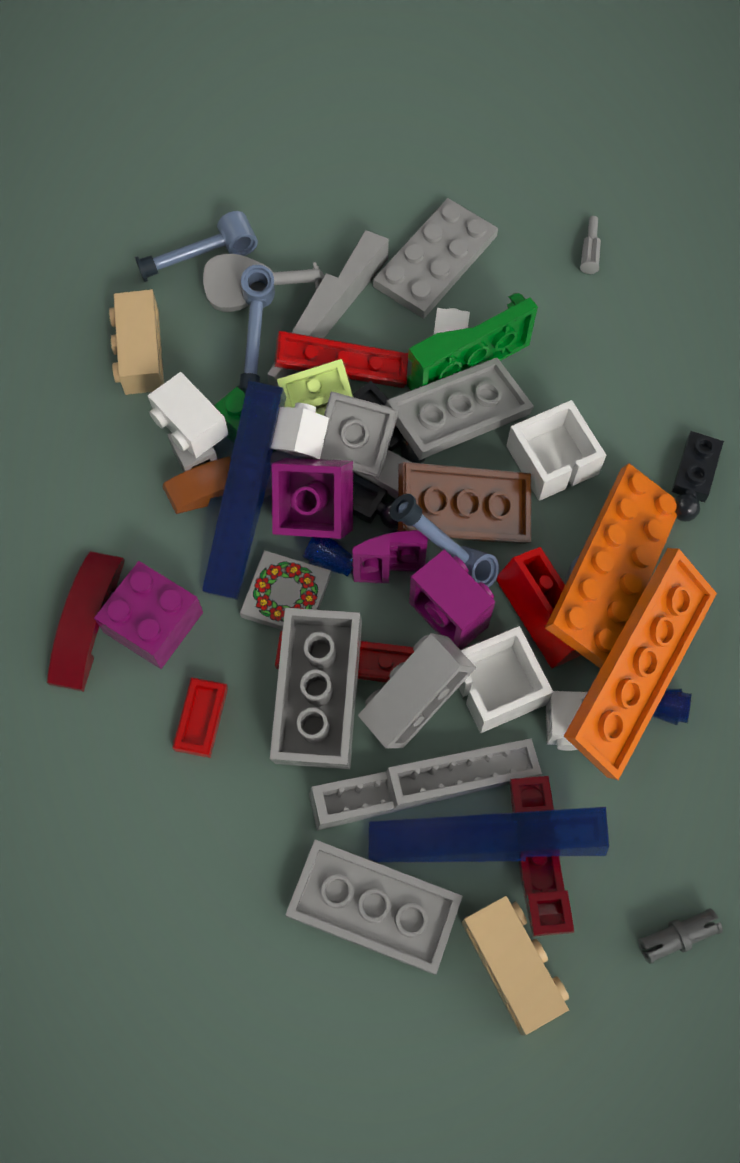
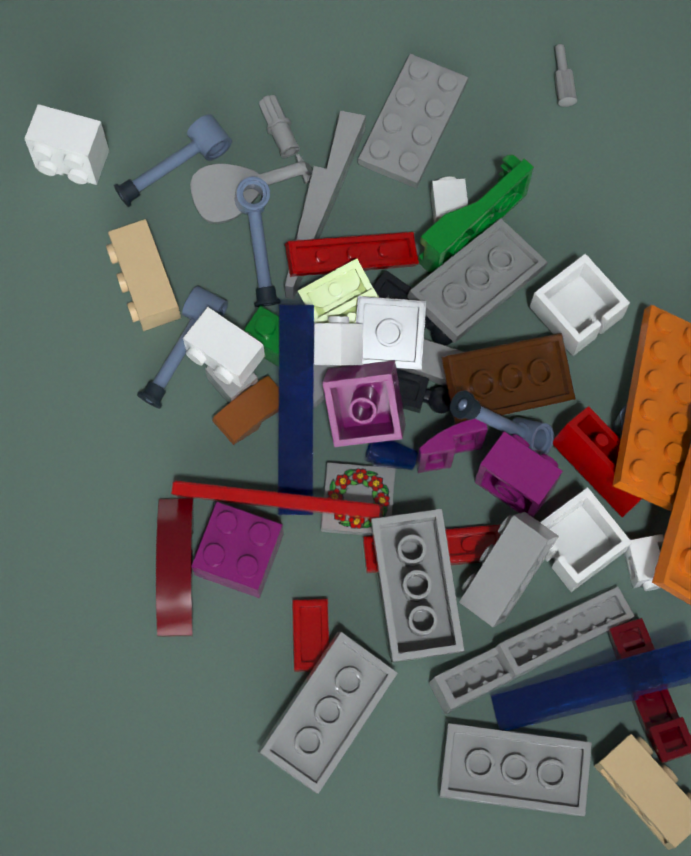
camera: 15 degrees left, 5 degrees up
(100, 211) = (67, 145): none -> white piece
(116, 448) = (193, 308): none -> sand blue piece
(191, 799) = (327, 712): none -> light grey plate
(200, 573) = (277, 500): none -> red tile
(306, 238) = (279, 126): none -> light grey axle

